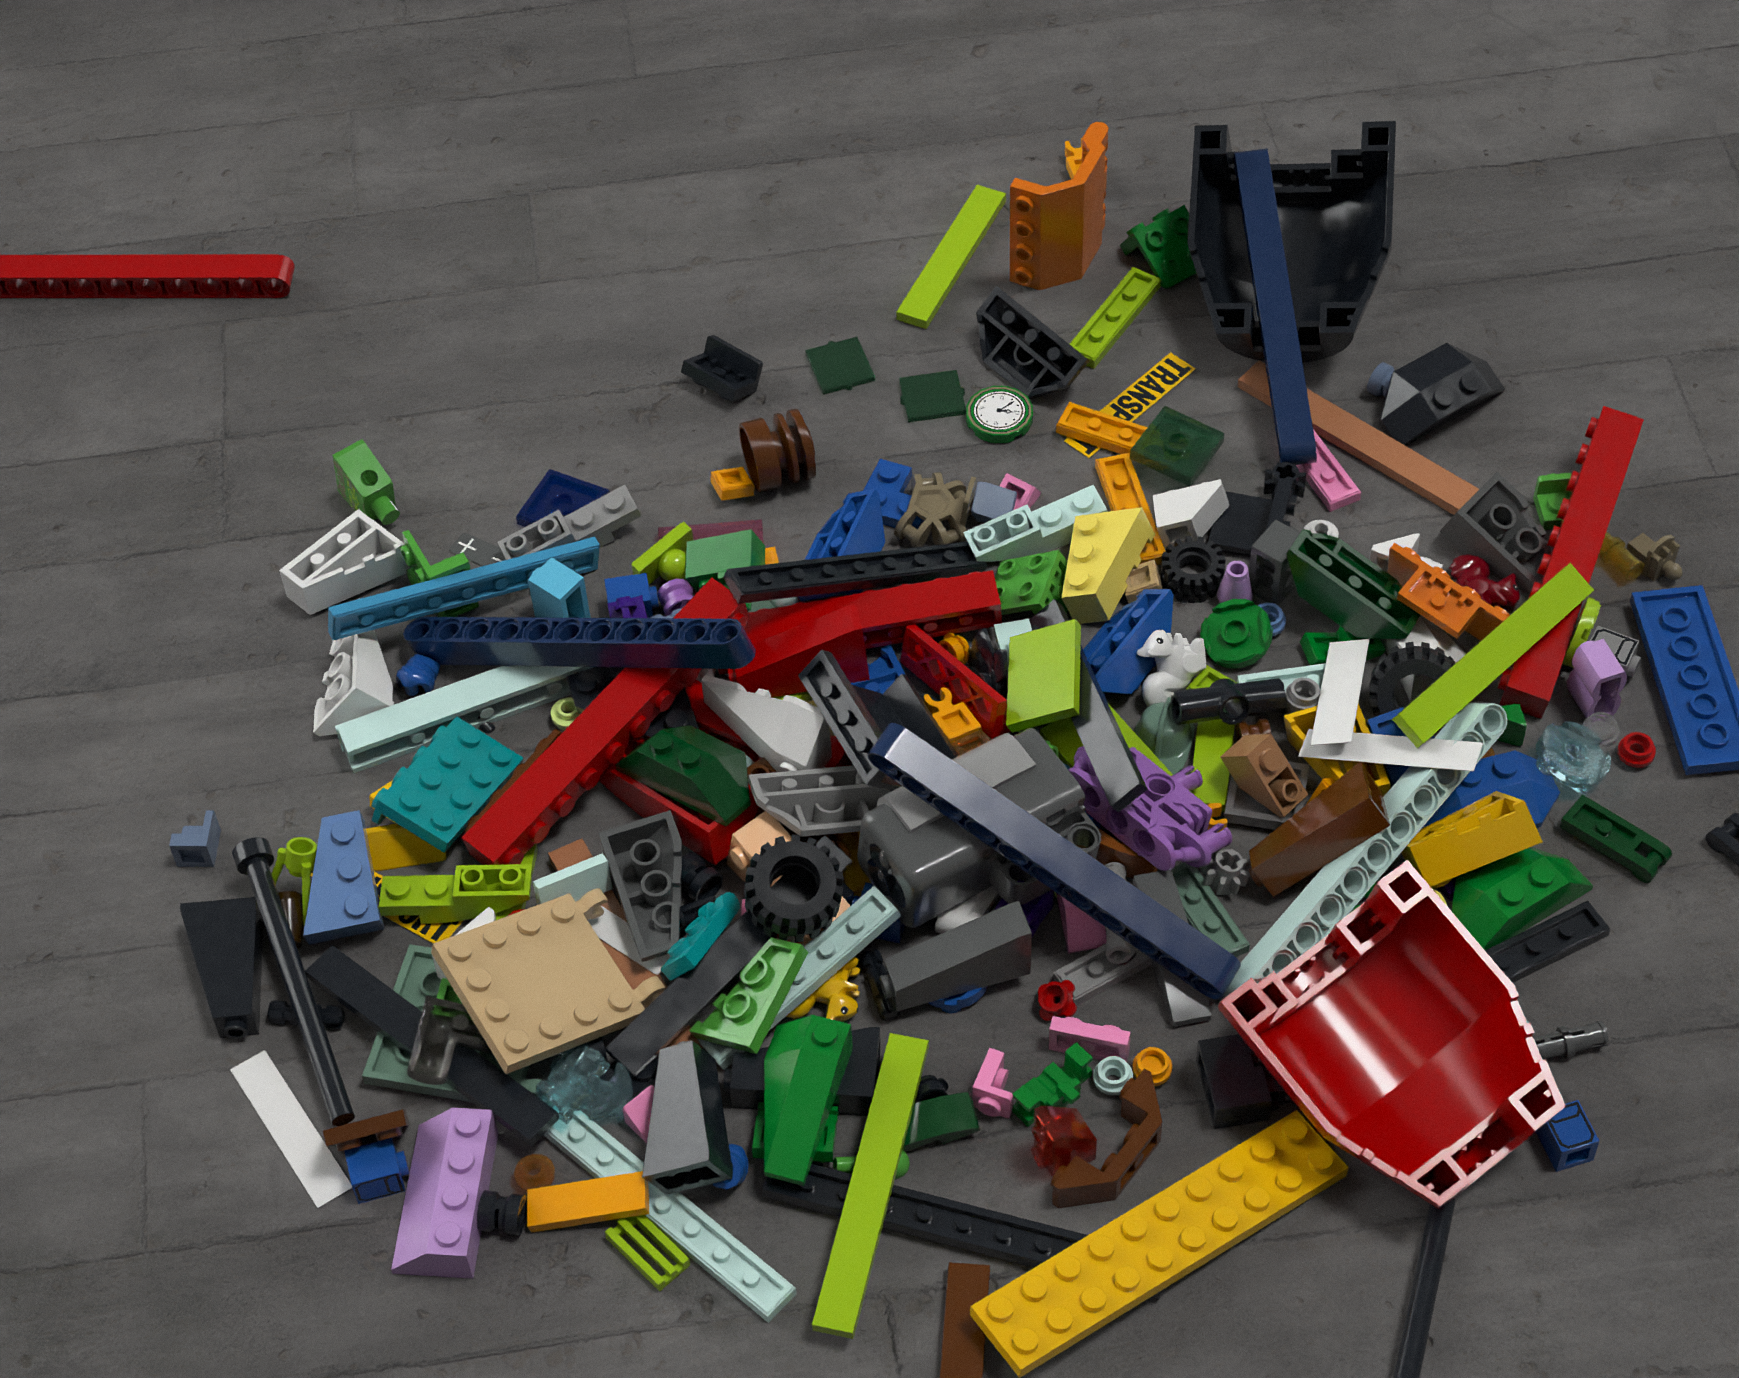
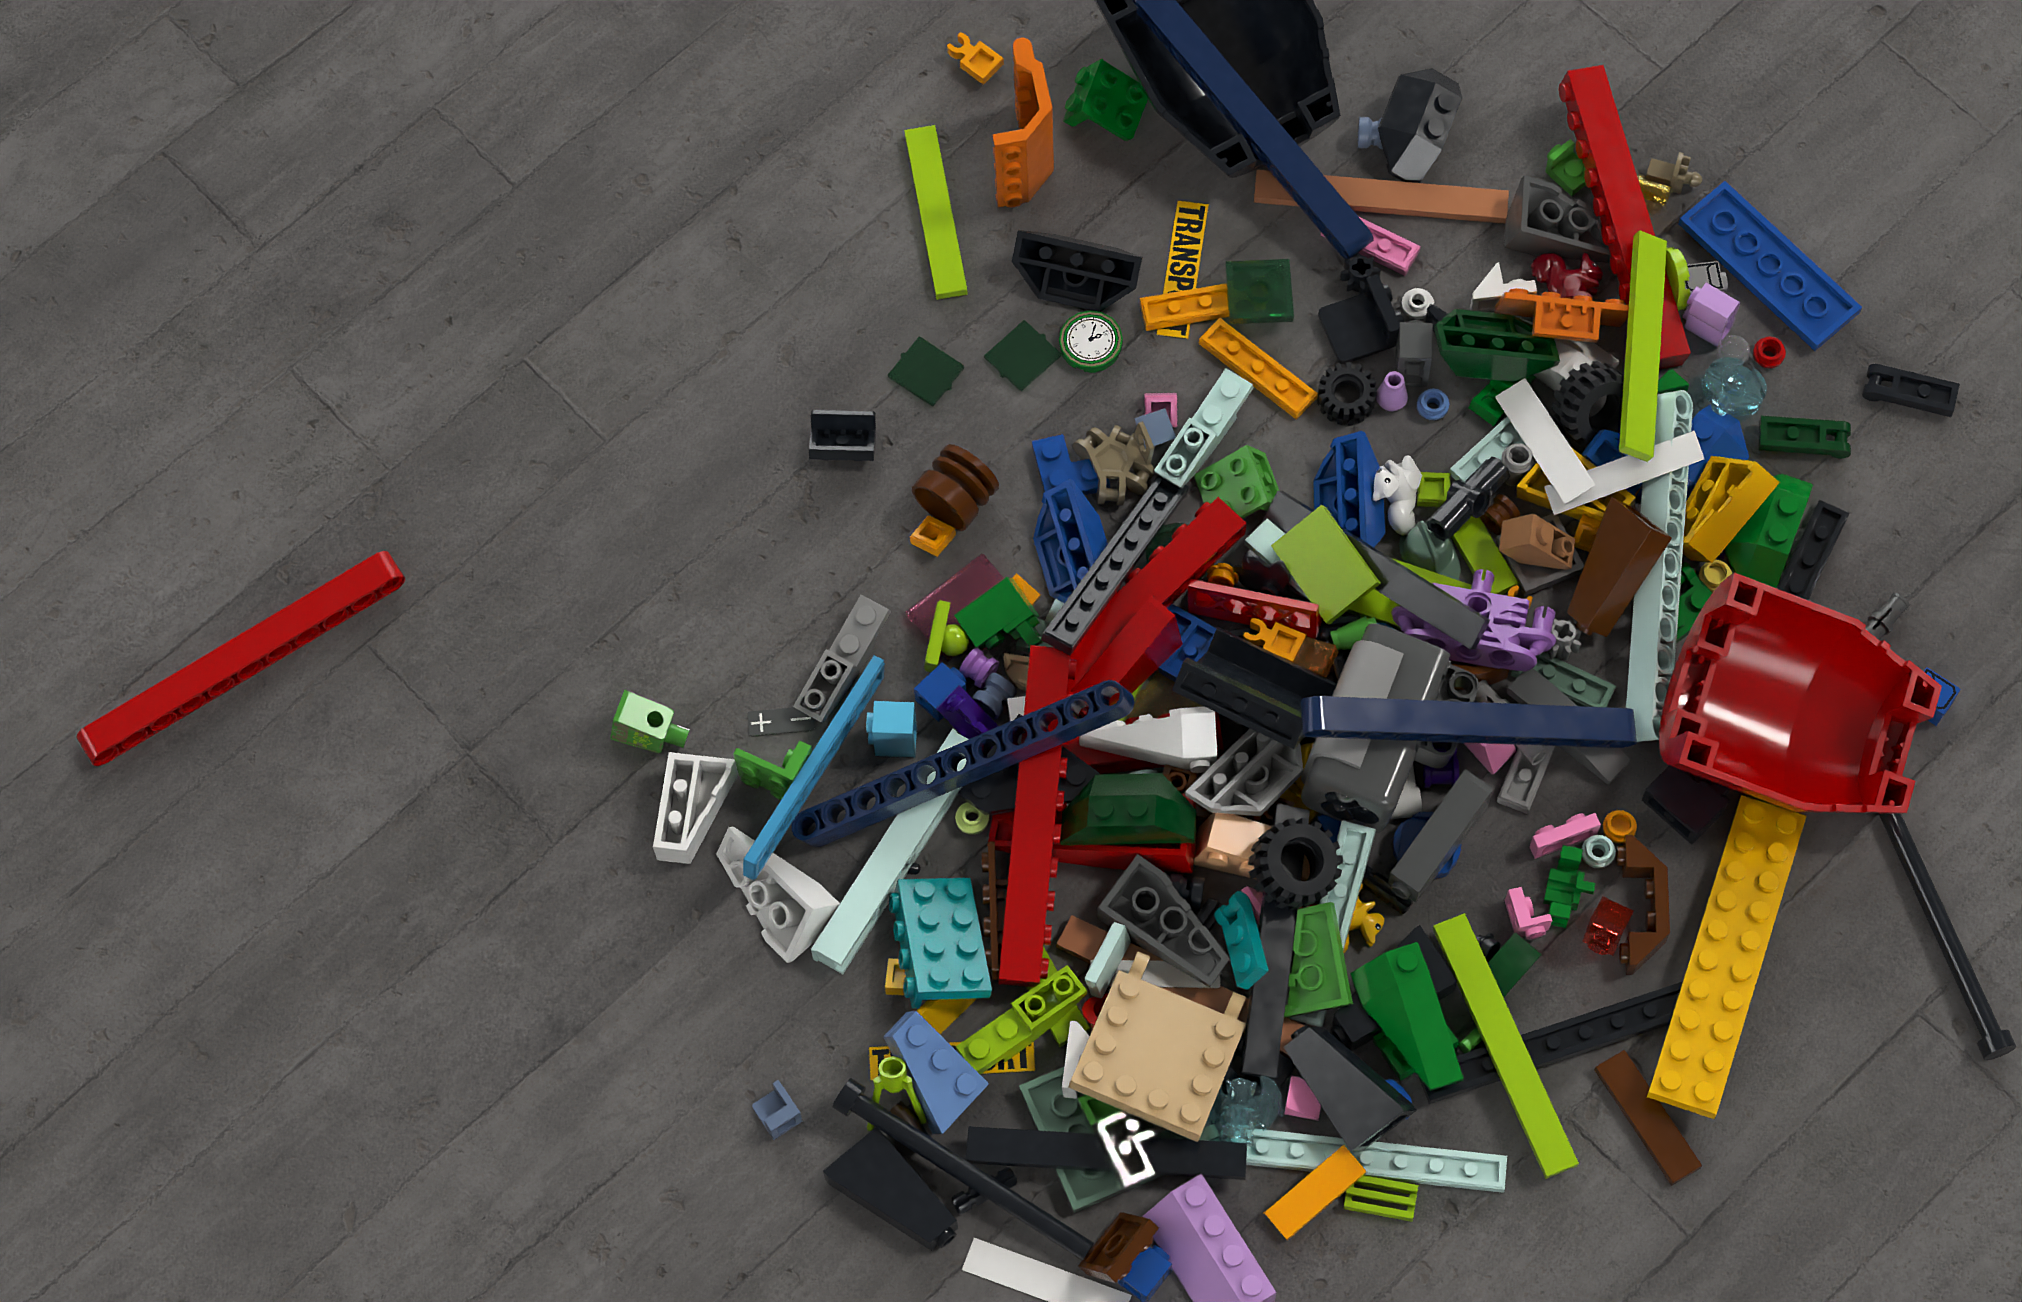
camera: 35 degrees left, 15 degrees up
(418, 671) = (826, 860): blue arm -> none
(502, 1212) = (1264, 1240): black wheel -> none
(530, 1162) = (1251, 1205): clear orange plate -> none
(556, 493) = (804, 635): clear blue tile -> none
(1047, 995) = (1526, 818): red plate -> none
(1101, 559) = (1280, 431): light yellow wedge -> none
(1115, 315) = (1110, 192): lime tile -> none
(1142, 578) = (1316, 428): tan tile -> none
(1189, 511) = (1310, 348): white slope -> none
(1236, 633) = (1422, 431): green tile -> none

